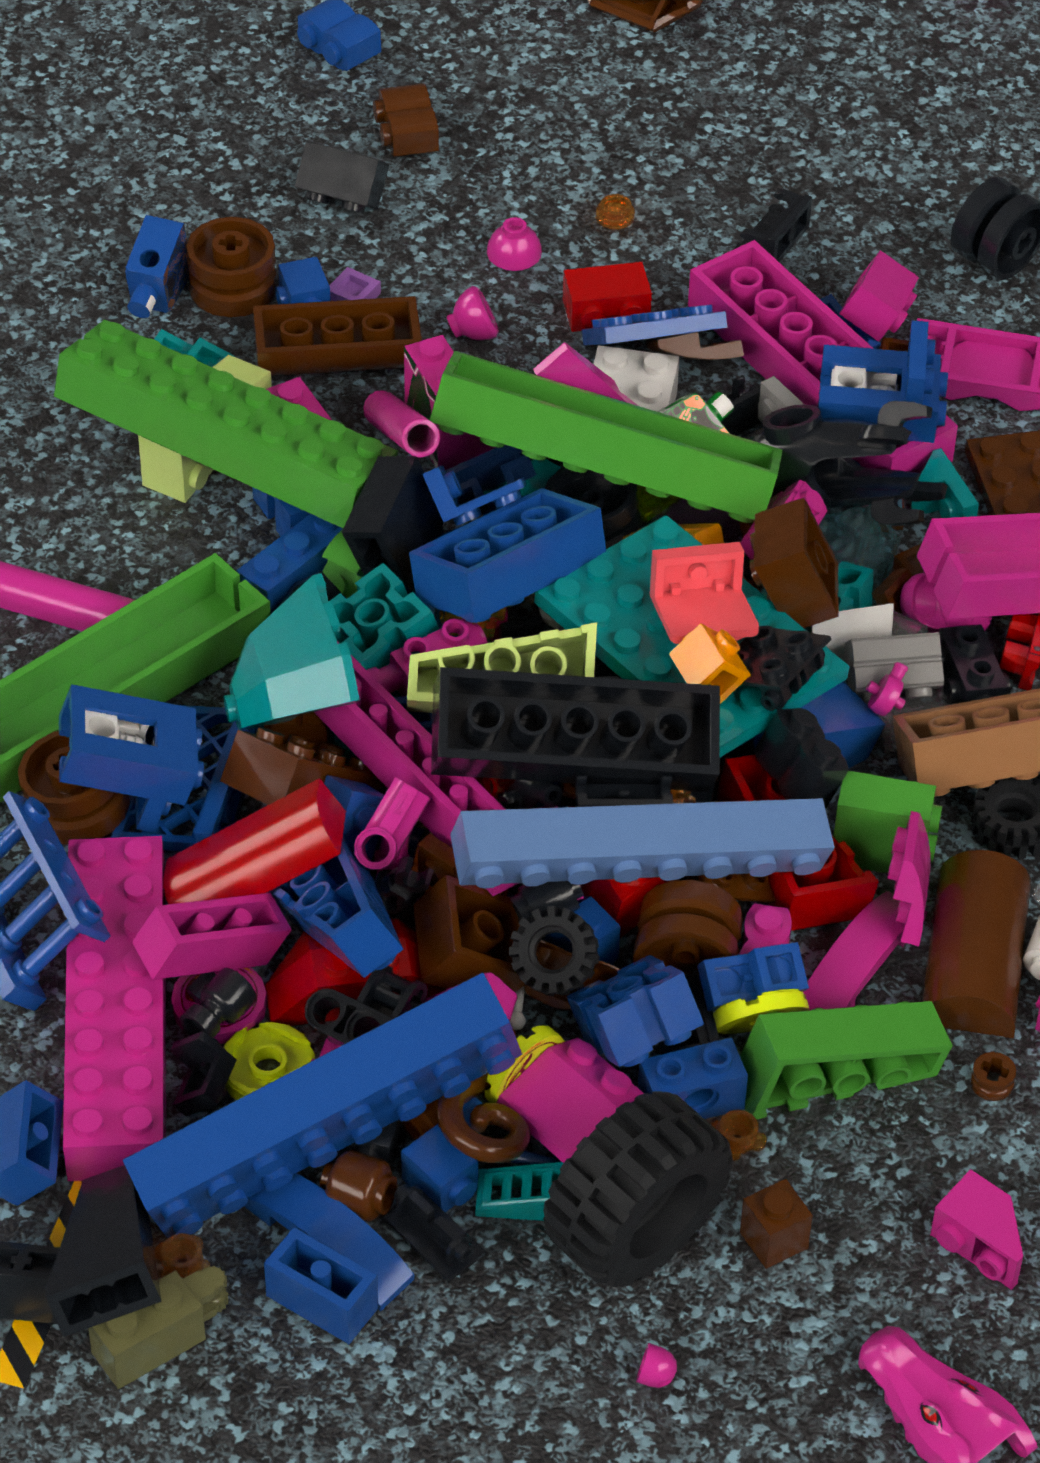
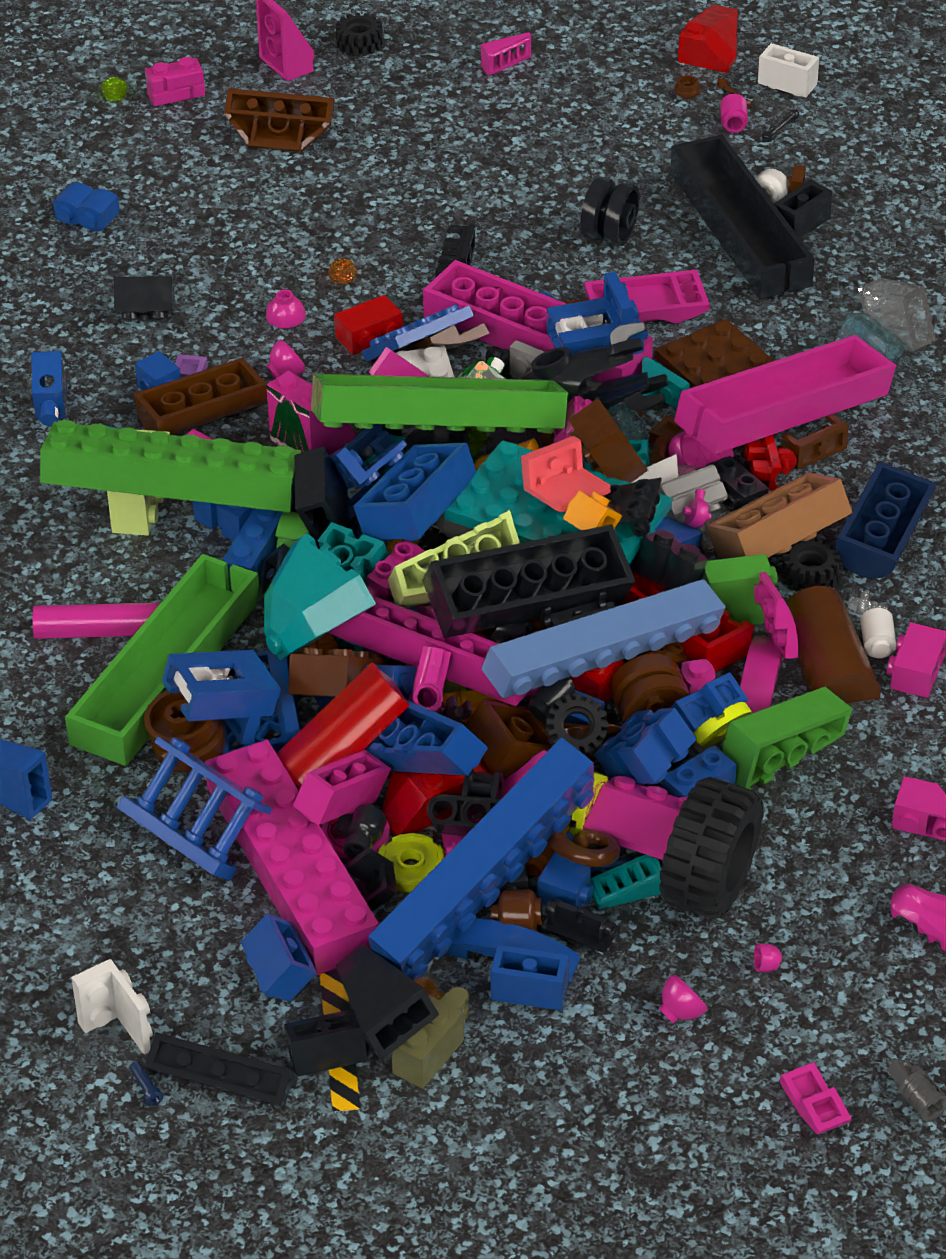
camera: 20 degrees left, 5 degrees down
(231, 266) = (100, 374): reddish brown wheel -> none
(401, 423) = (292, 433): dark pink piece -> none
(406, 120) = (166, 249): reddish brown brick -> none
(437, 856) = (469, 691): reddish brown plate -> none
(506, 1388) = (680, 1001): none -> dark pink brick
(775, 1223) = (797, 848): reddish brown brick -> none
(881, 297) = (554, 274): dark pink brick -> none
(991, 1089) = (885, 715): reddish brown bush -> none

